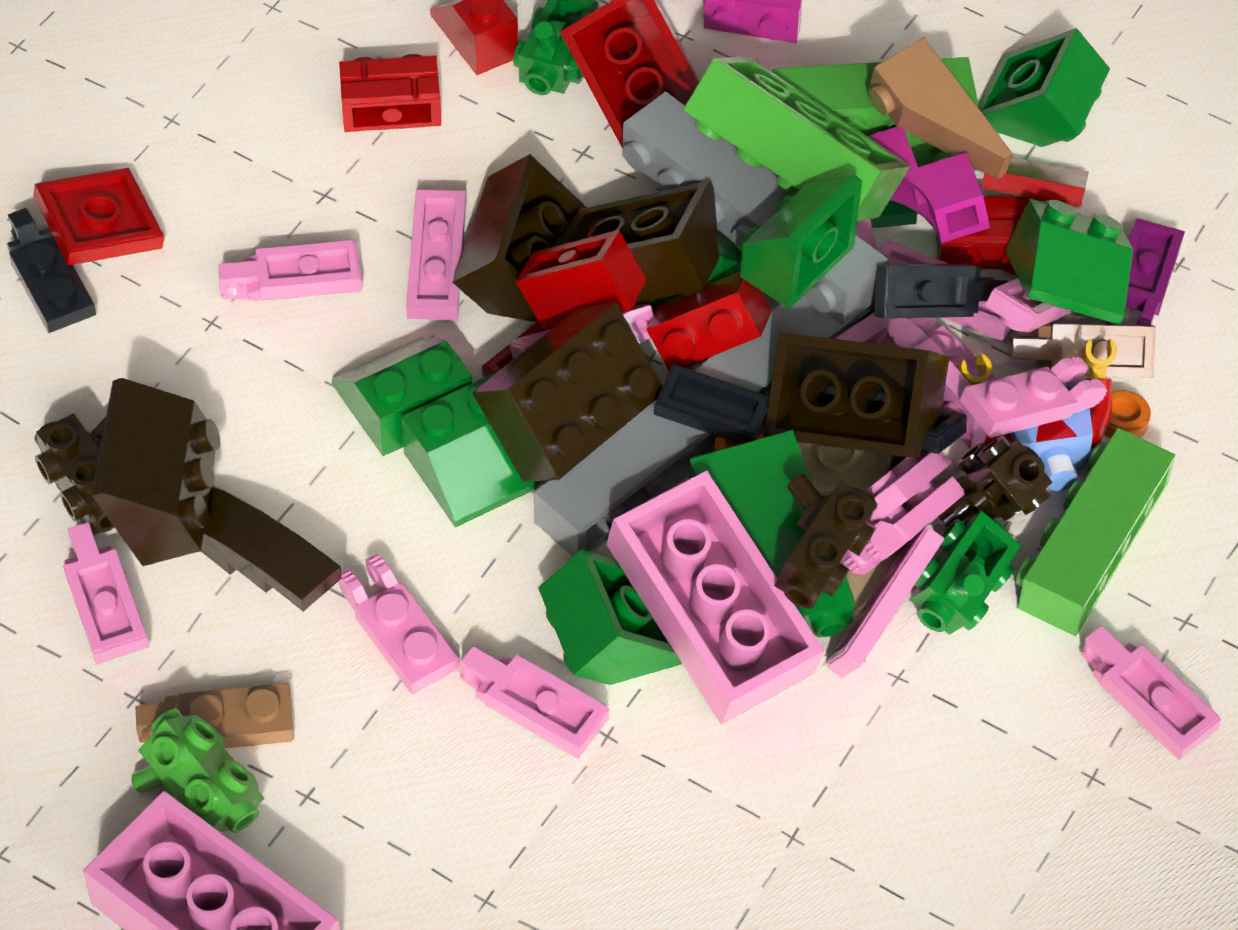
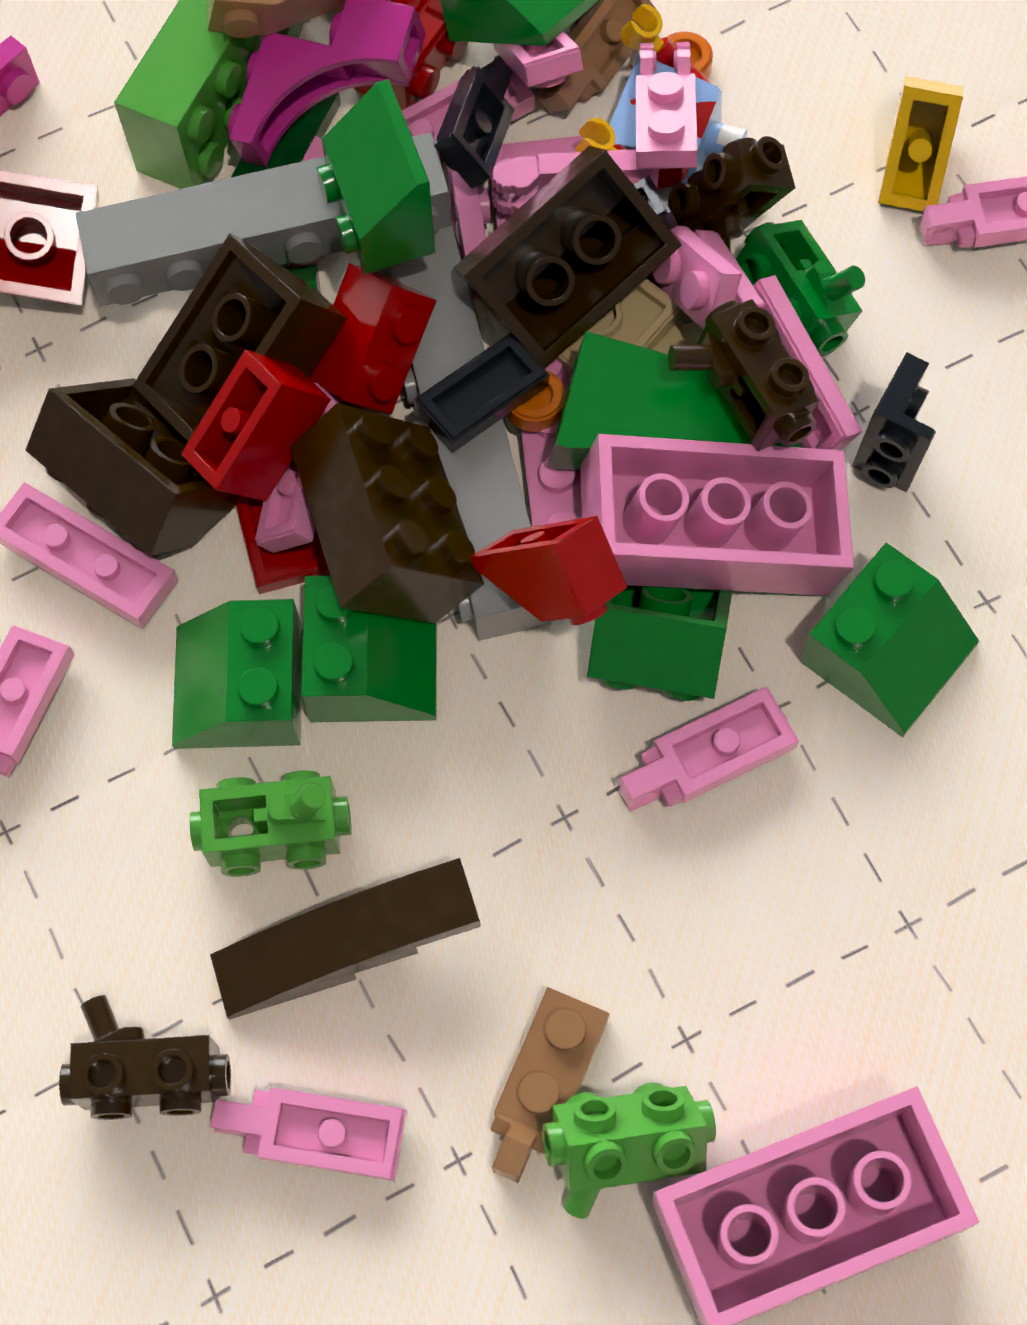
camera: 55 degrees left, 15 degrees up
(156, 470) = (212, 988): dark brown slope -> none
(317, 468) = (289, 817): none -> bright green brick
(399, 627) = (537, 838): bright pink hinge -> none
(584, 503) = (555, 569): none -> red slope
(703, 773) = (891, 640): none -> green slope
(790, 132) = (232, 125): bright green brick -> none
(879, 680) = (894, 437): none -> black bracket
(1095, 531) = (836, 180): bright green brick -> none
(1165, 598) = (920, 143): none -> yellow slope

